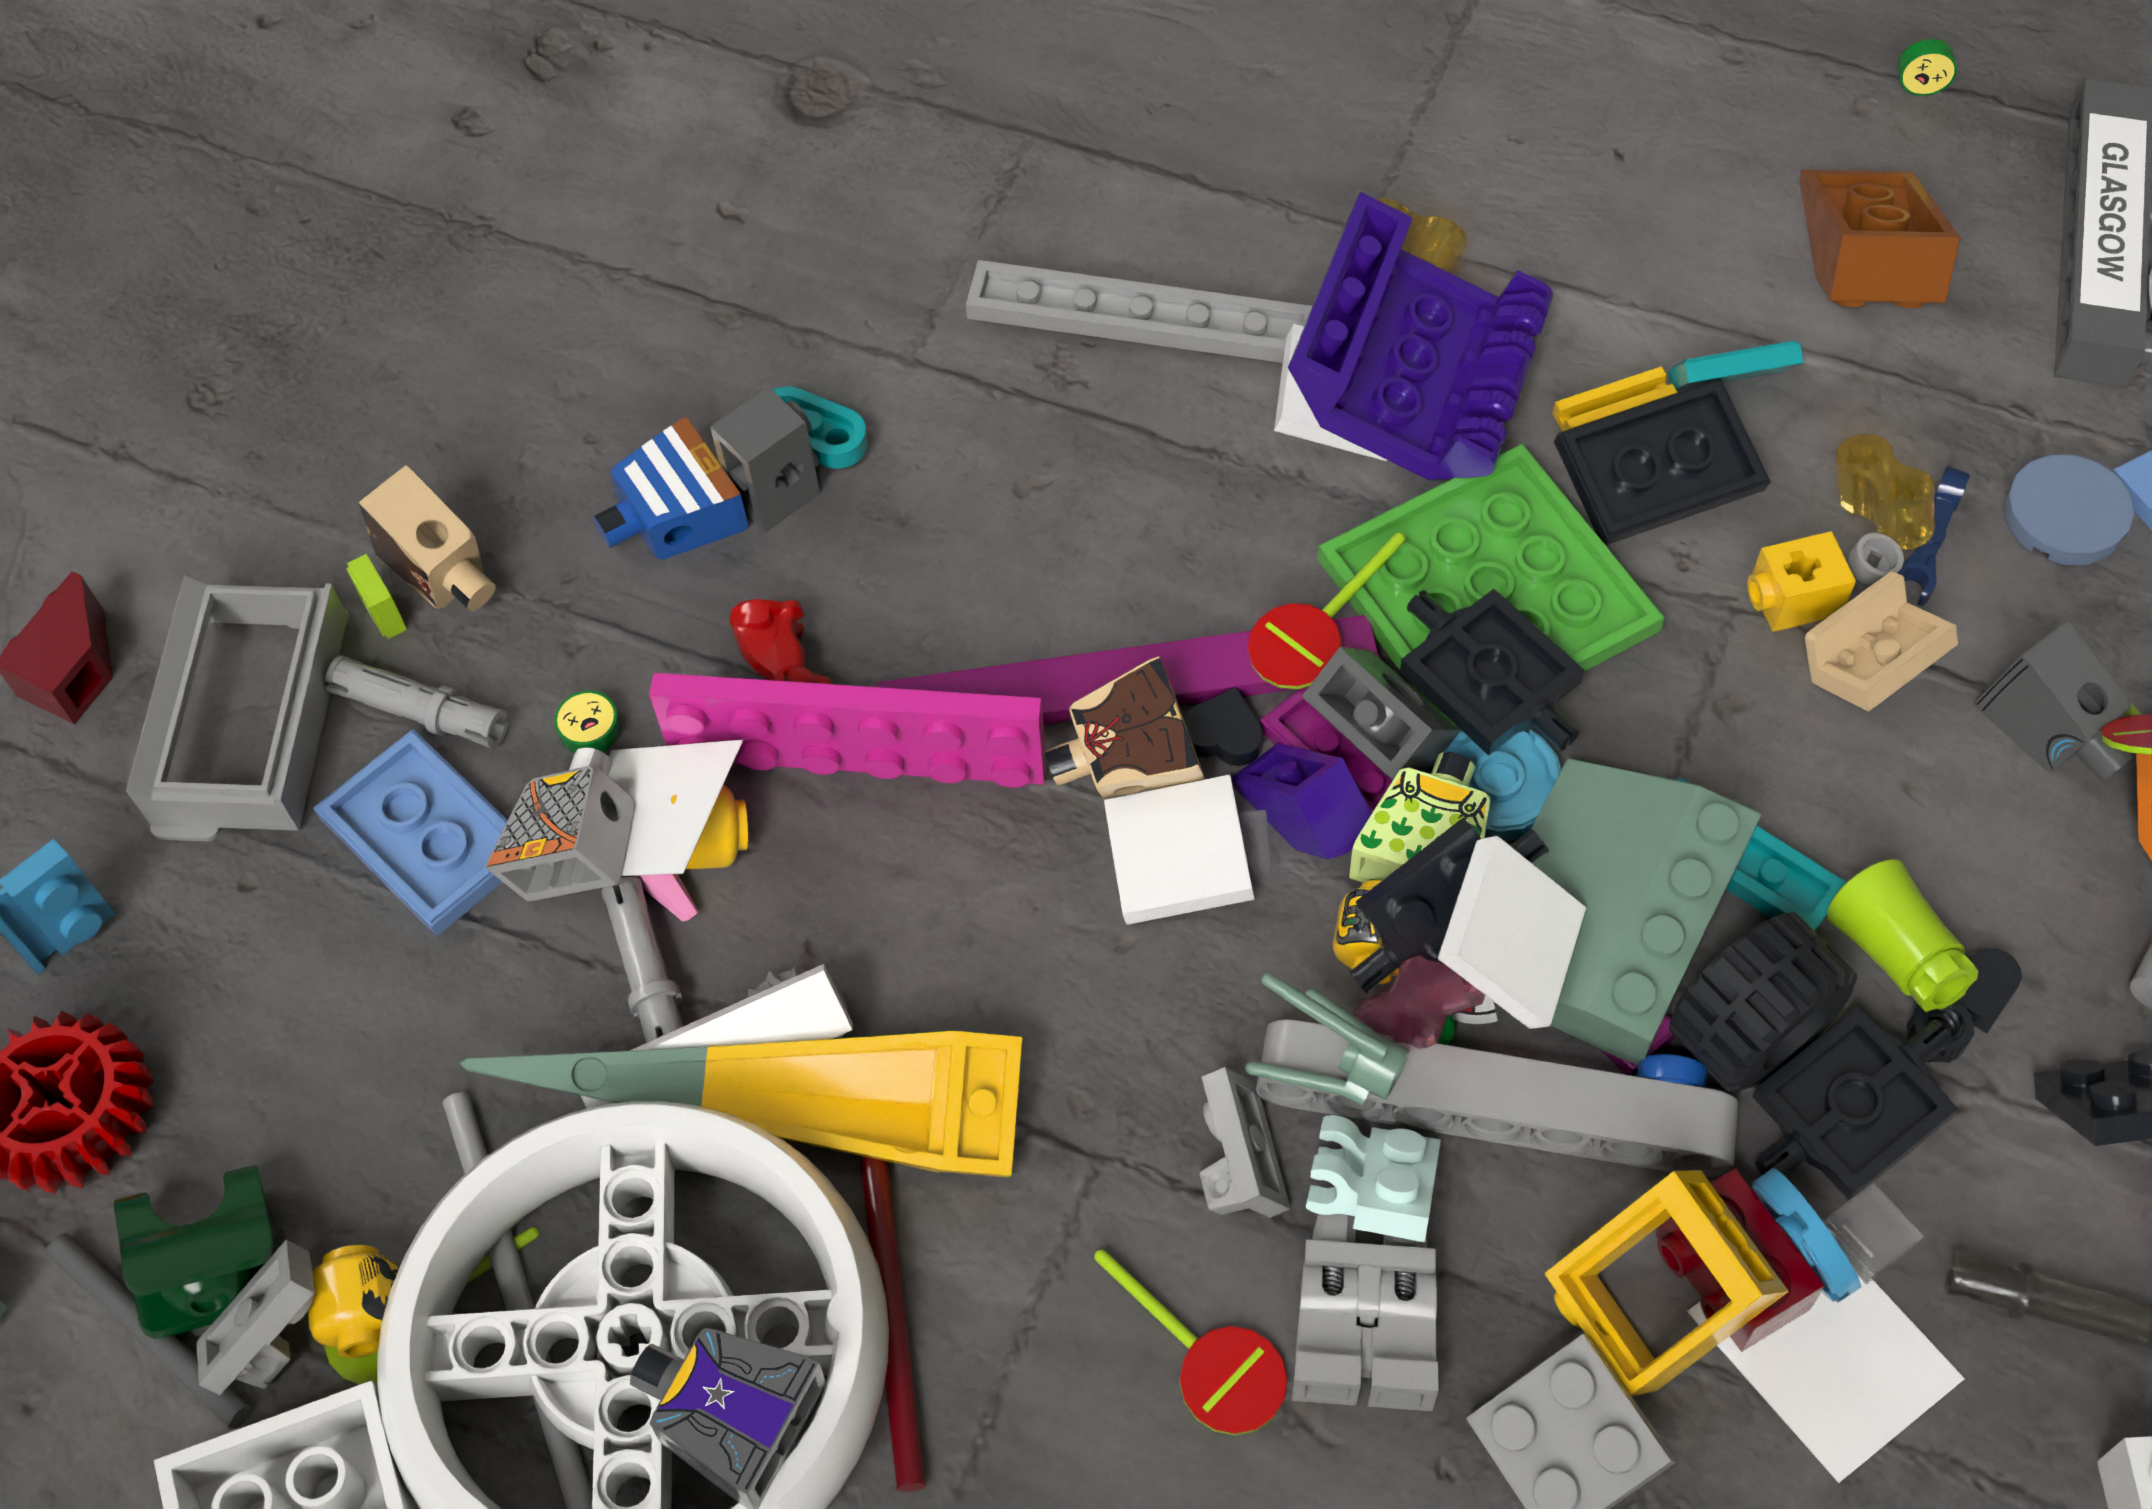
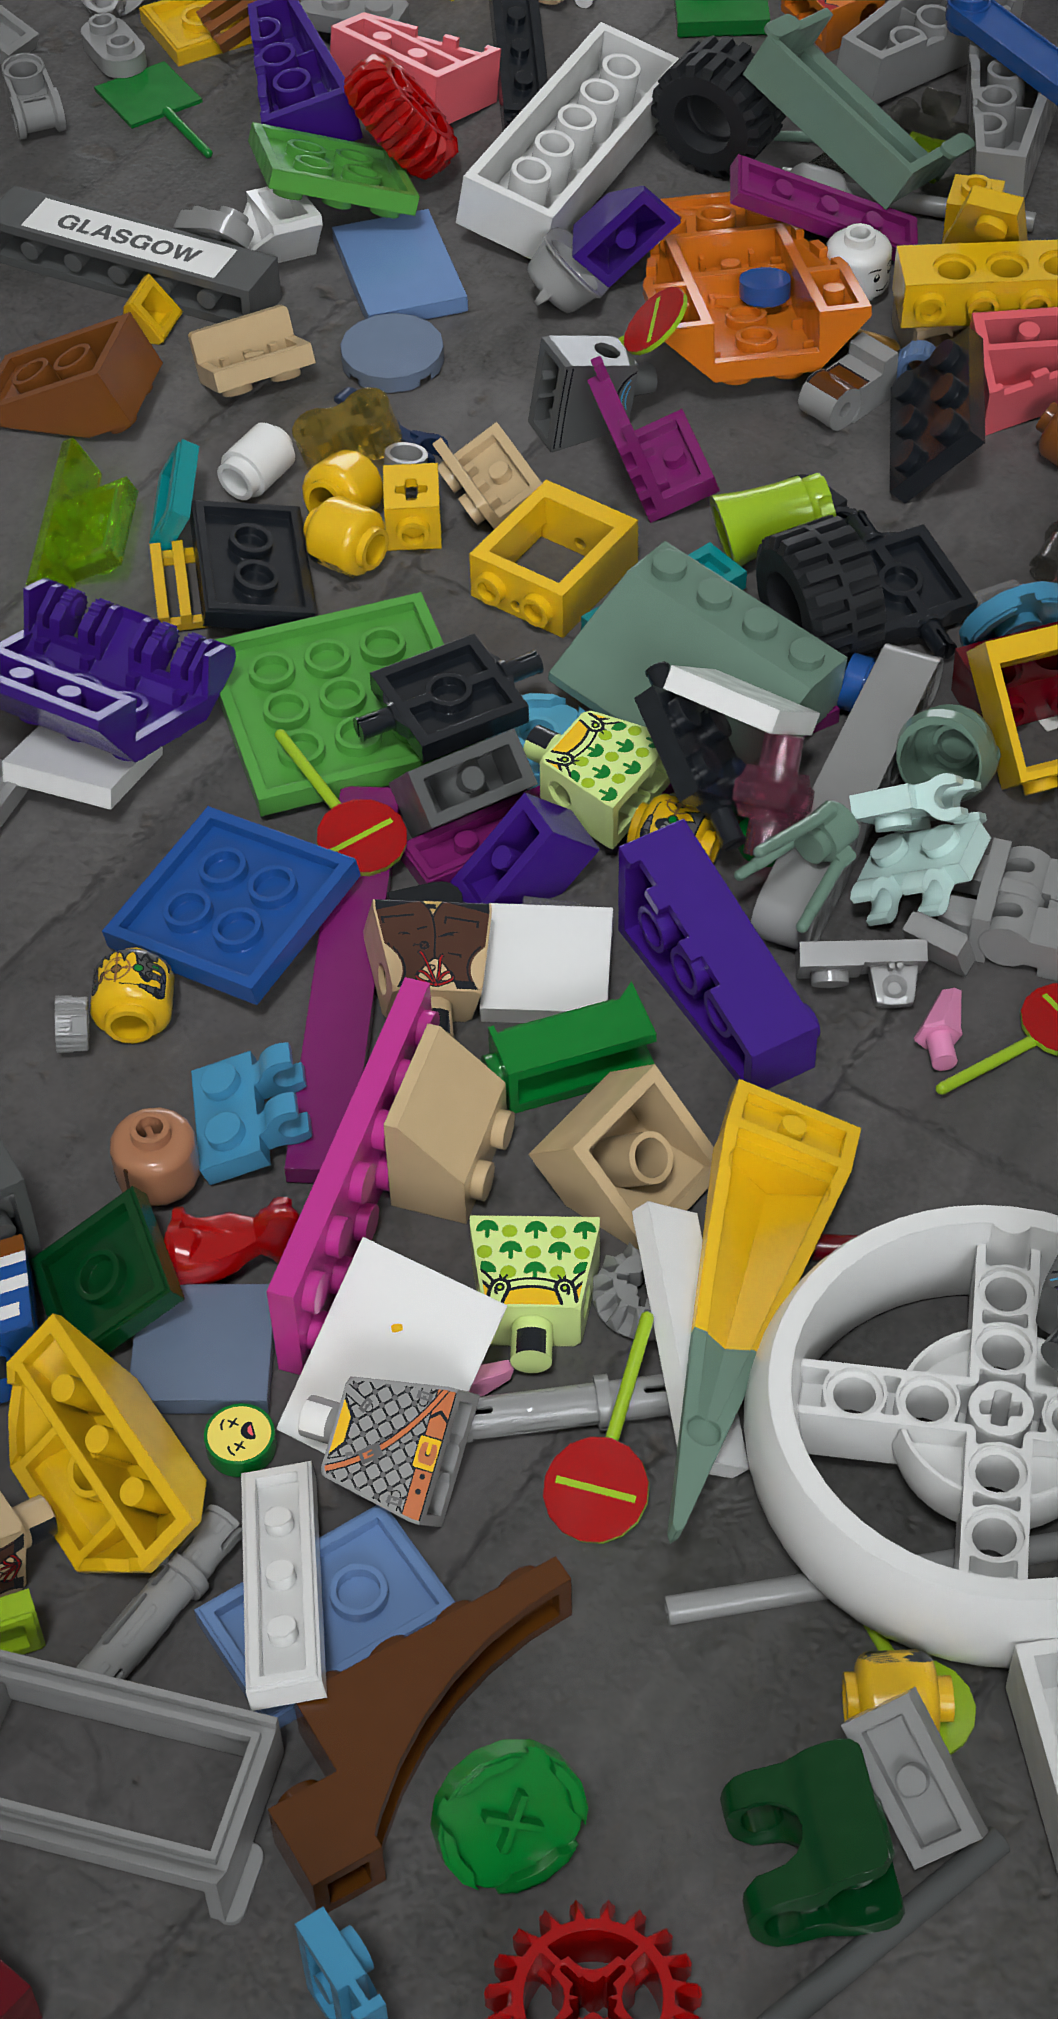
camera: 80 degrees left, 10 degrees down
(218, 992) = (508, 1815): none -> green tile
(305, 887) = (386, 1718): none -> reddish brown arch
(420, 780) = (282, 1587): none -> white tile
(541, 624) = (98, 1454): none -> yellow wedge
(573, 1007) = (597, 1483): none -> red piece
(678, 643) = (208, 1350): none -> sand blue tile
(718, 573) = (109, 1272): none -> dark green tile
(770, 911) = (543, 1275): none -> yellowish green torso
(857, 574) = (155, 1154): none -> nougat head
(922, 791) = (445, 1129): none -> tan slope
(931, 625) = (231, 1115): none -> dark azure plate
(935, 961) = (626, 1148): none -> tan slope
(1009, 474) = (72, 1024): none -> light grey axle
(1053, 510) = (132, 995): none -> yellow head
(1062, 891) = (570, 1050): none -> green window
(1176, 559) = (233, 903): none -> blue plate
(1185, 1245) = (942, 1029): none -> bright pink bar
(1193, 996) = (712, 958): none -> dark purple wedge
(1285, 1221) = (944, 944): none -> light grey tile
(1450, 1145) = (912, 807): none -> light aqua plate
(1562, 1184) = (947, 741): none -> sand green helmet
(1660, 299) = (82, 523): none -> clear neon green bracket
(1723, 529) = (345, 536): none -> yellow head
(1754, 777) = (573, 521): none -> yellow window
(1801, 506) = (345, 475): none -> yellow head
(1818, 422) = (256, 461): none -> white brick
(1964, 784) = (659, 457): none -> magenta plate
(1993, 374) = (249, 350): none -> tan bracket
(2030, 271) = (153, 310): none -> yellow slope

